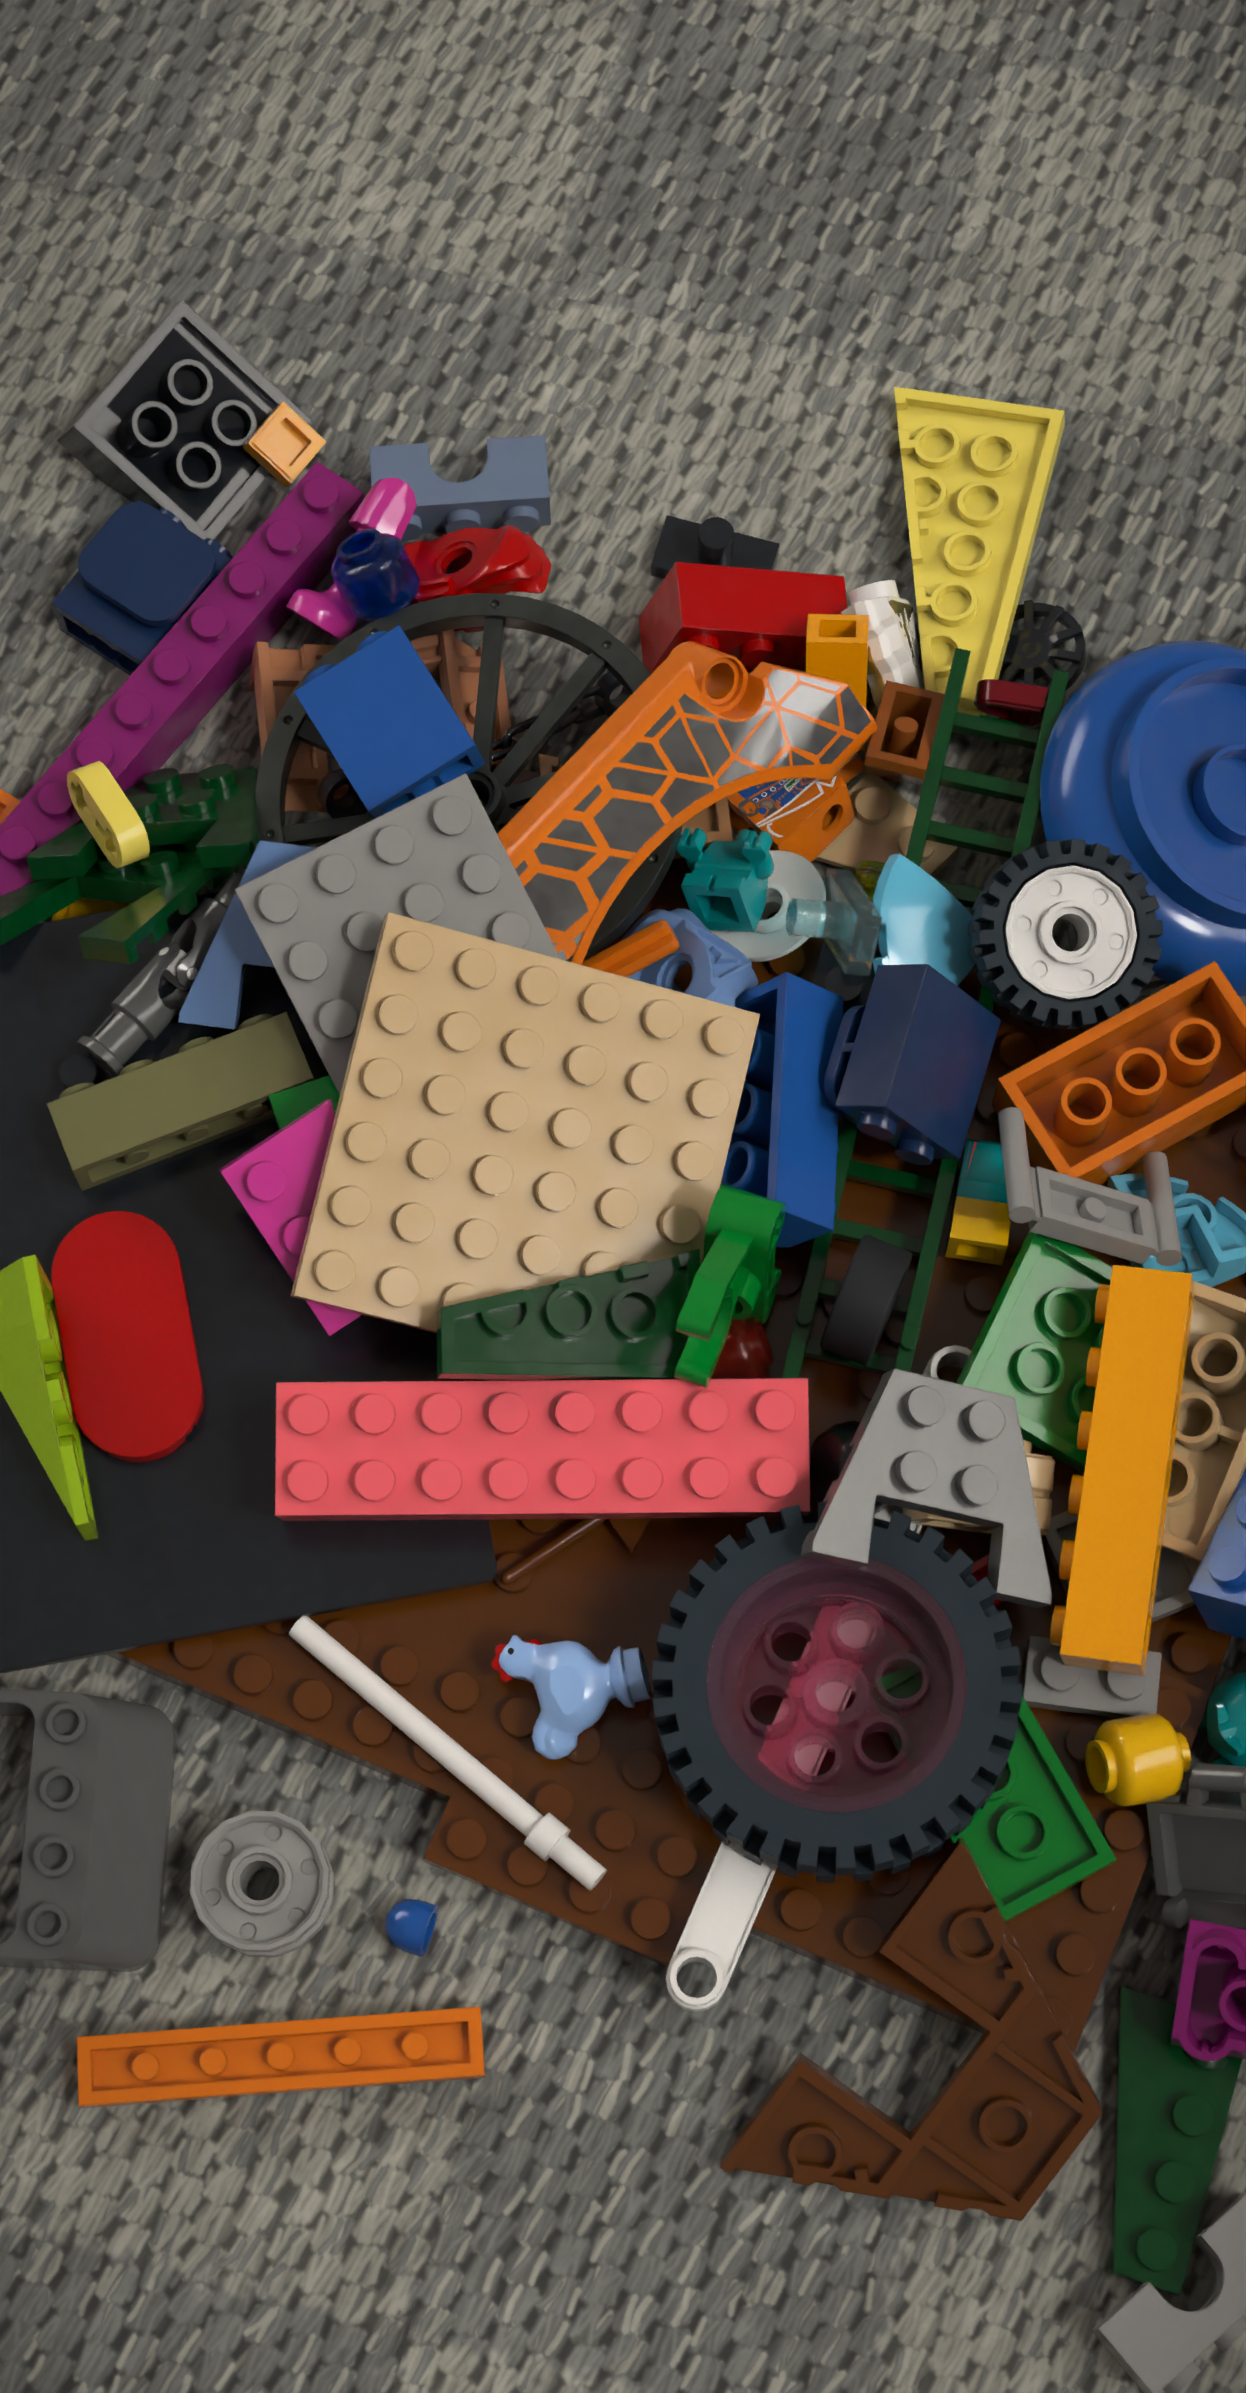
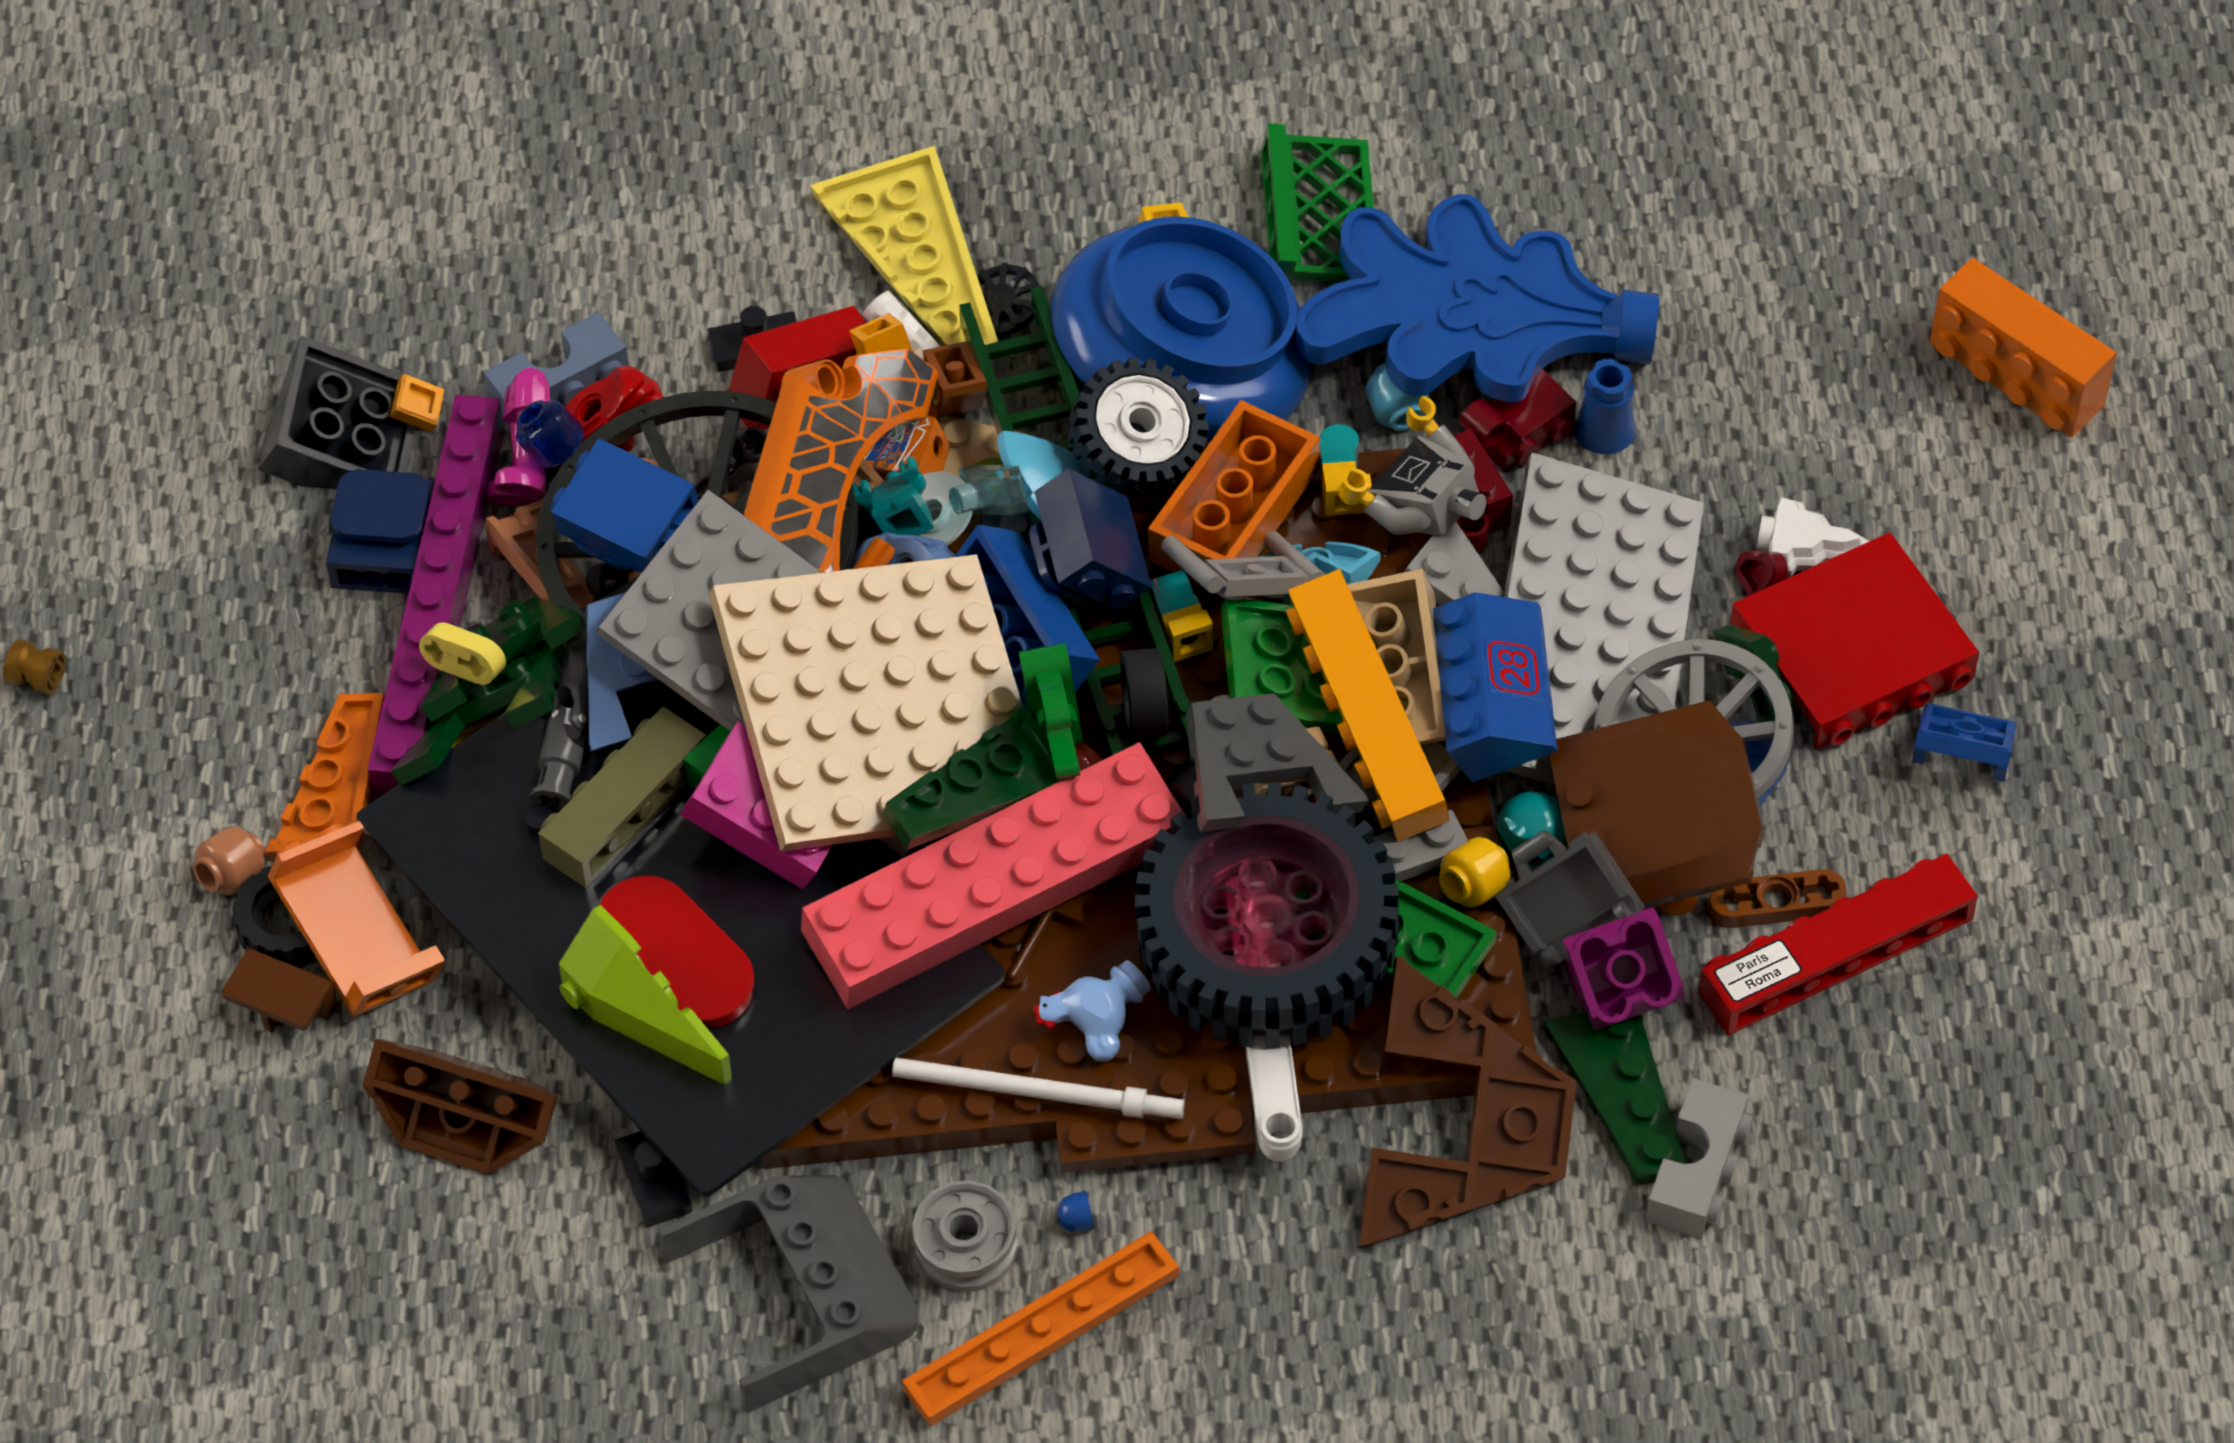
camera: 30 degrees left, 15 degrees down
(1011, 701) = (1012, 322): dark red tile -> none

